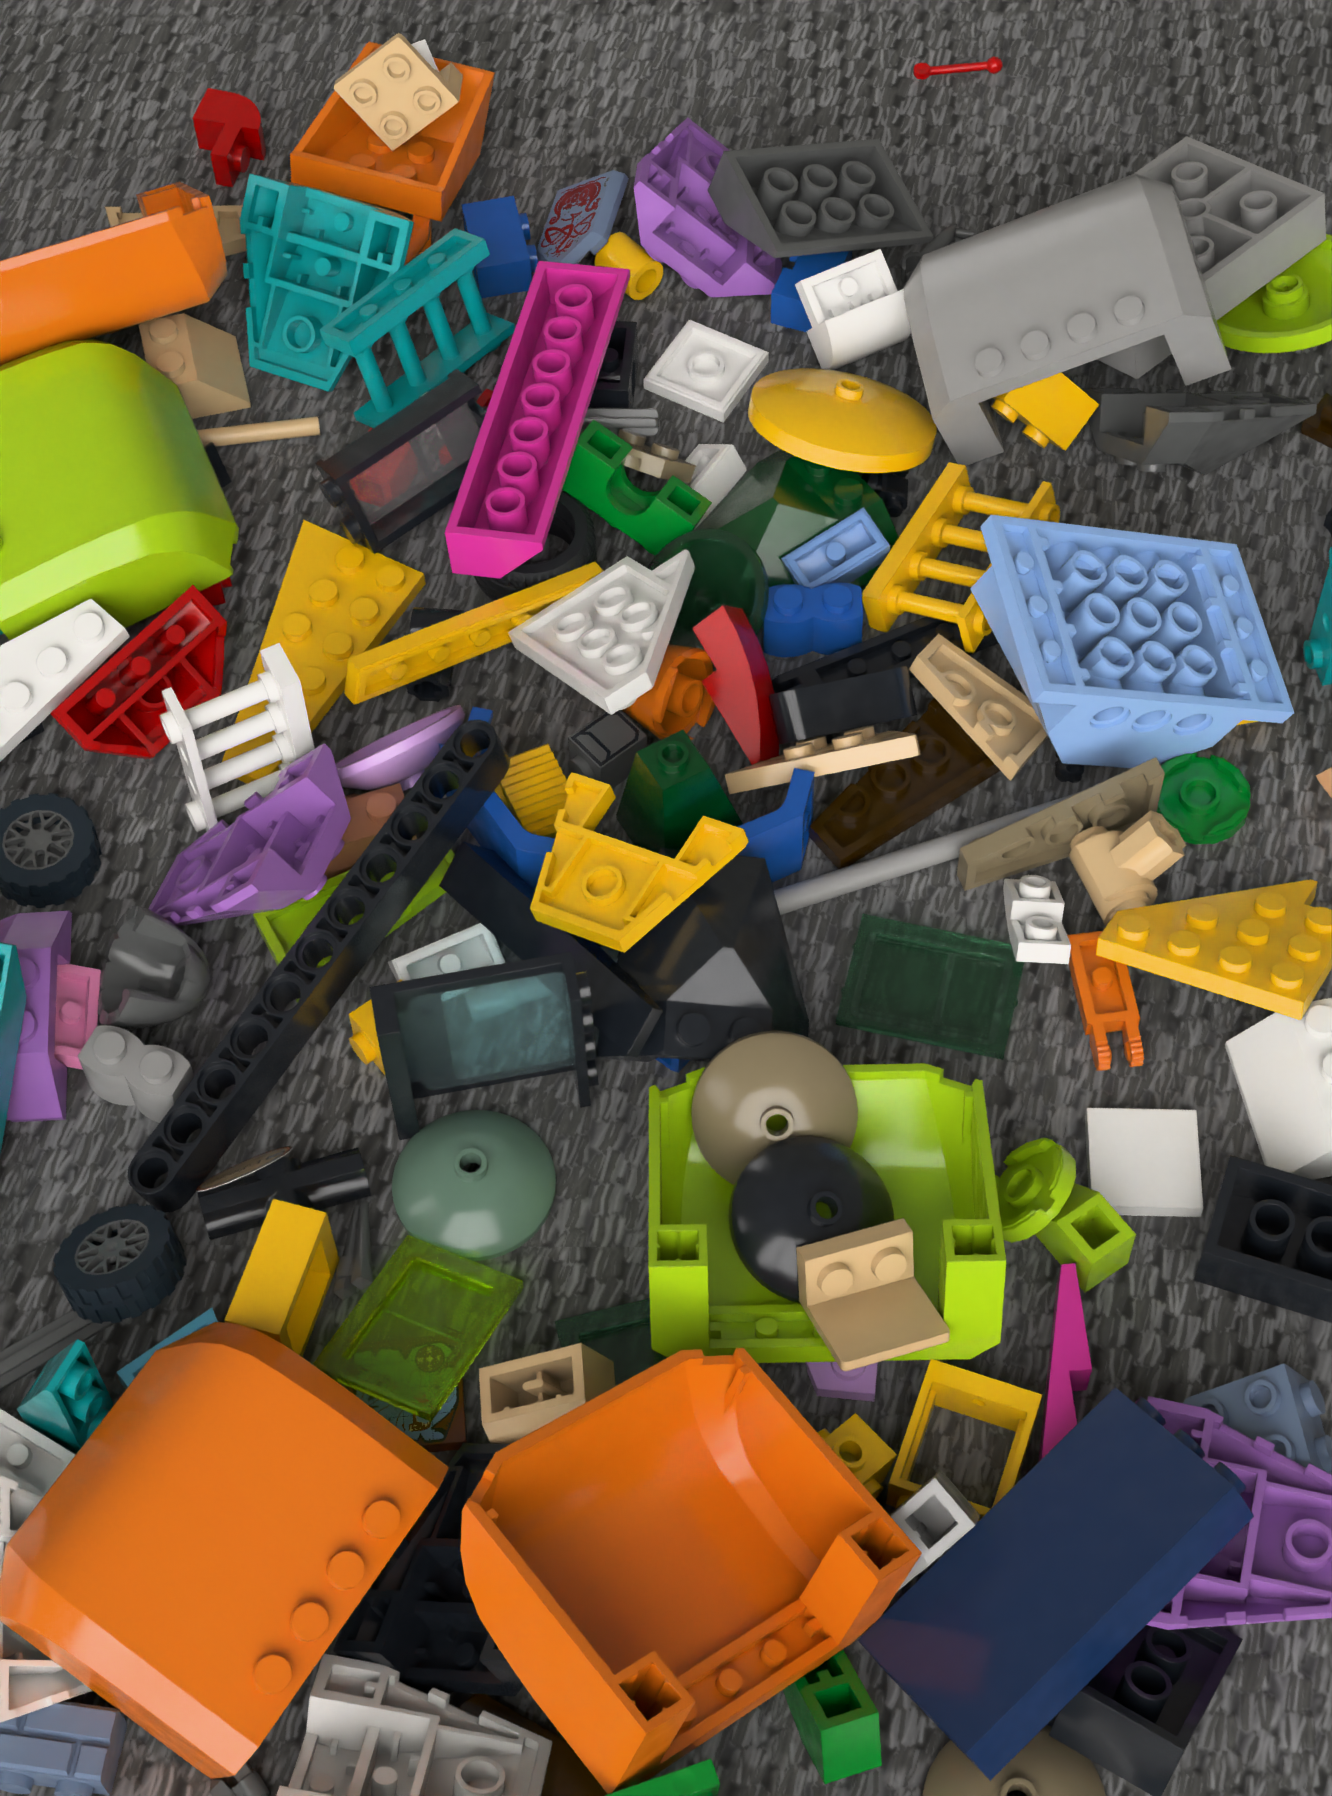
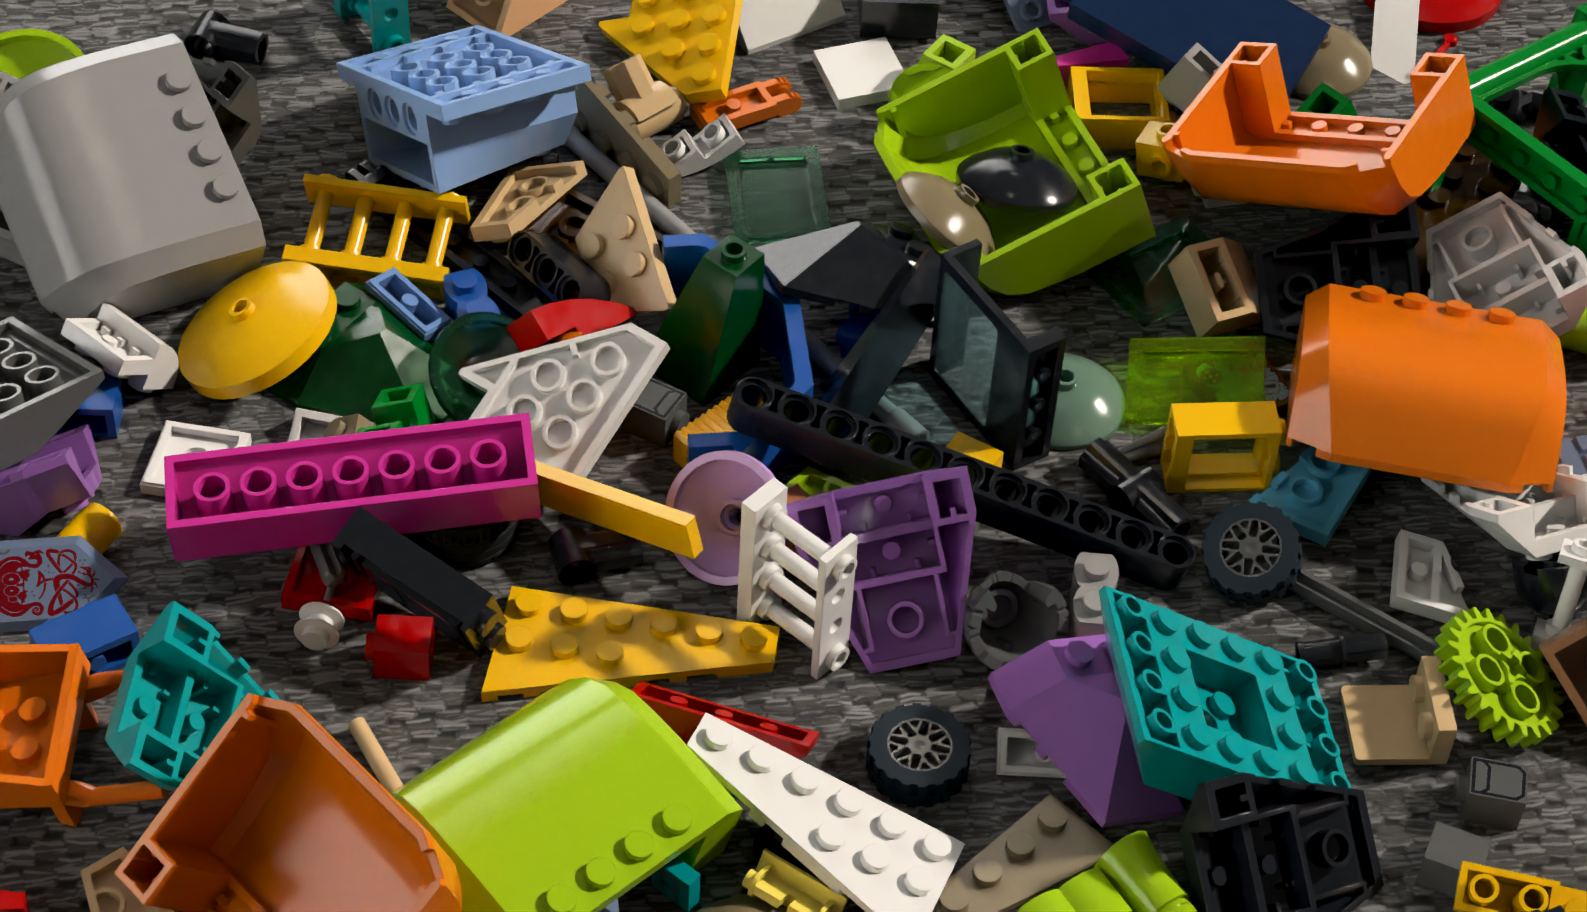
camera: 115 degrees left, 10 degrees down
(67, 1398) = (1376, 527): teal slope -> none
(244, 1168) = (1141, 495): tan sticker -> none
(398, 297) = (264, 632): teal fence -> none
(613, 887) = (835, 305): yellow wing -> none
(866, 1296) = (1072, 128): tan bracket -> none

